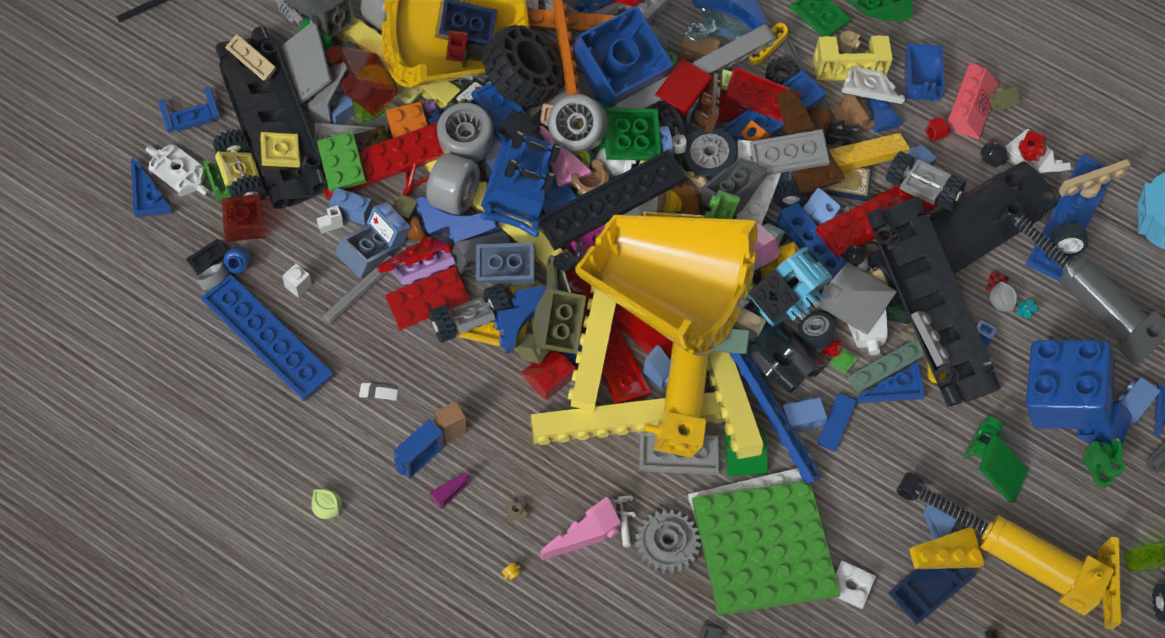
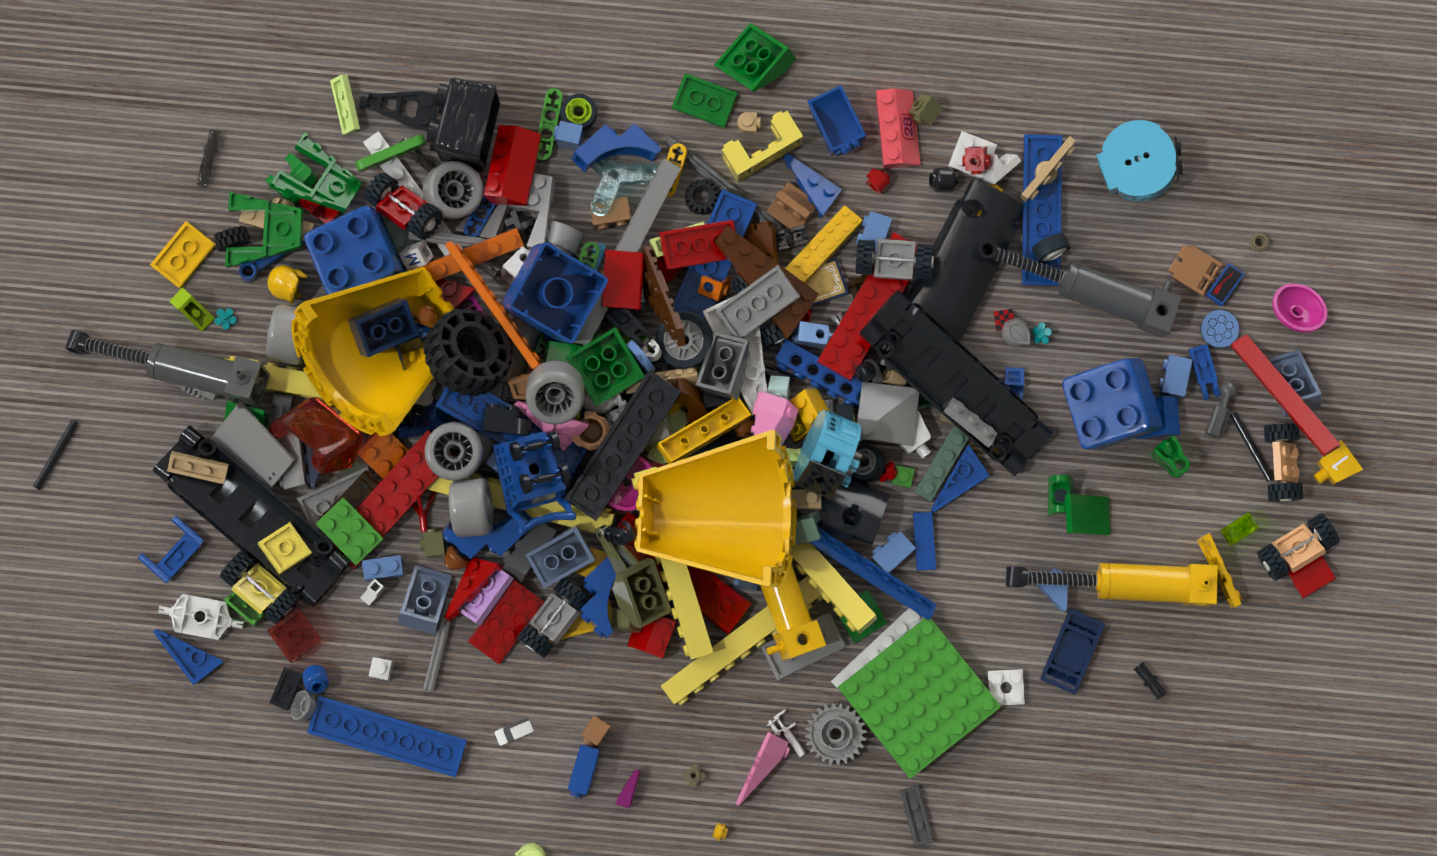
camera: 25 degrees left, 20 degrees up
(388, 224) = (430, 570): medium blue brick -> none
(456, 46) = (388, 357): dark red slope -> none
(722, 206) = (727, 406): bright green bracket -> none
(870, 84) = (793, 169): white wing -> none
(949, 551) = (1075, 618): yellow wing -> none

